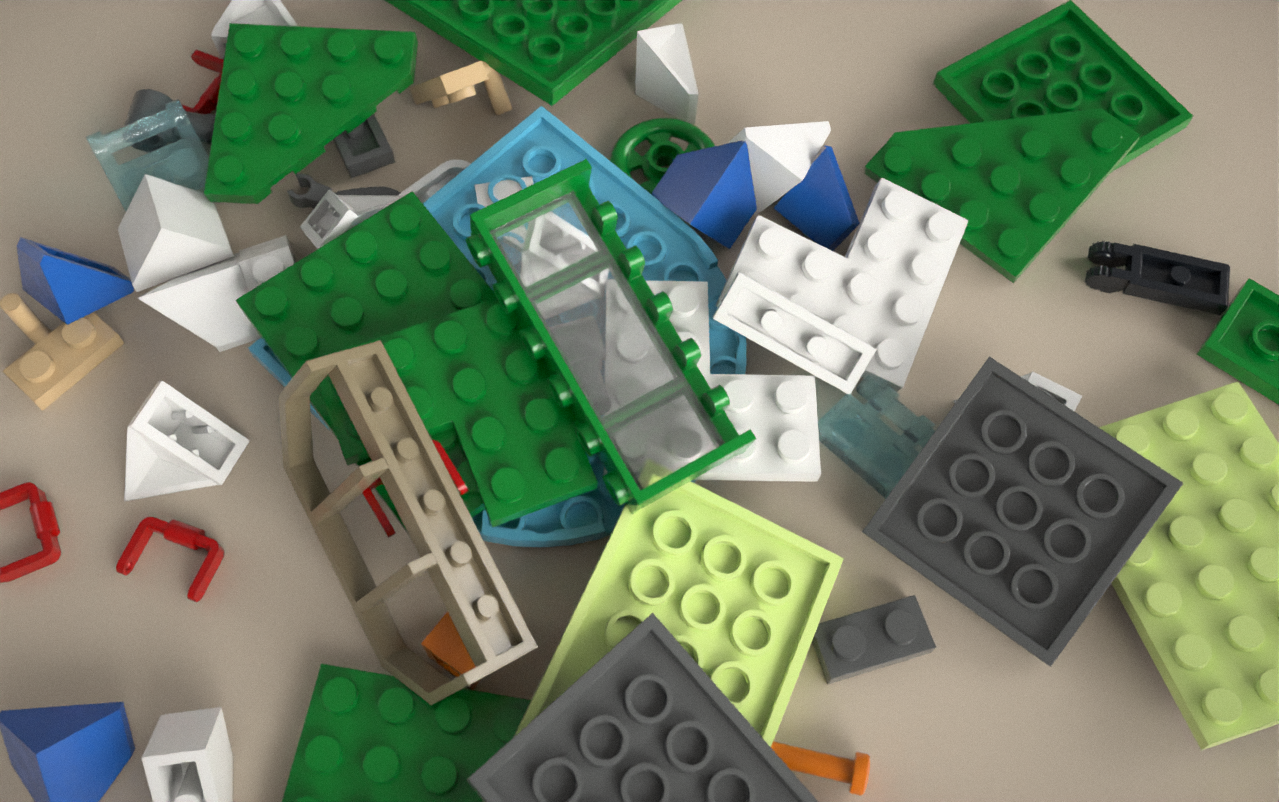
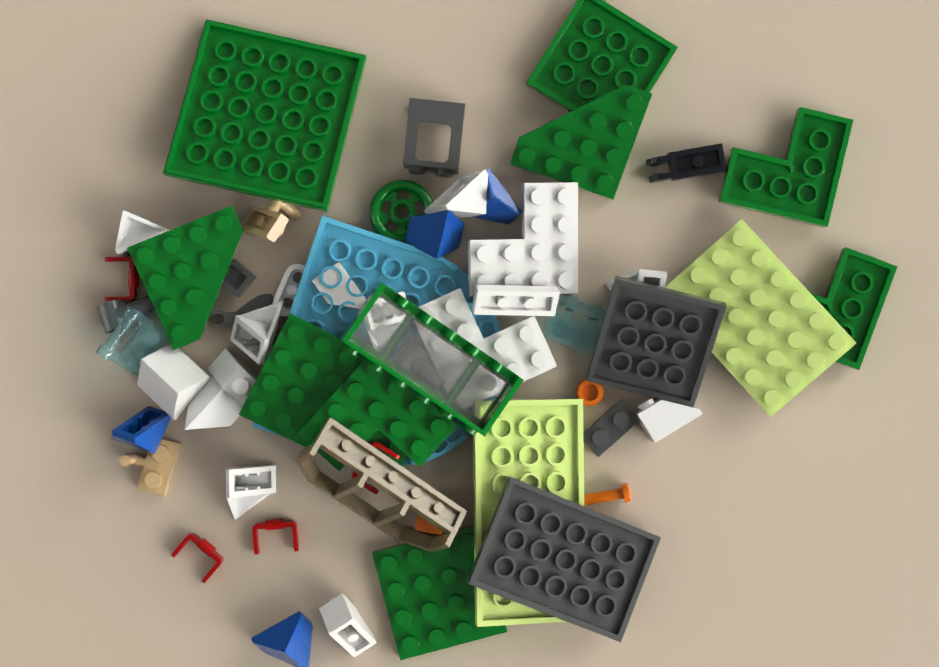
camera: 25 degrees left, 25 degrees up
(666, 71) = (376, 152): white slope -> none
(774, 53) = (439, 113): none -> dark grey window
(862, 561) = (589, 392): none -> orange tile
(990, 658) = (663, 417): none -> white slope

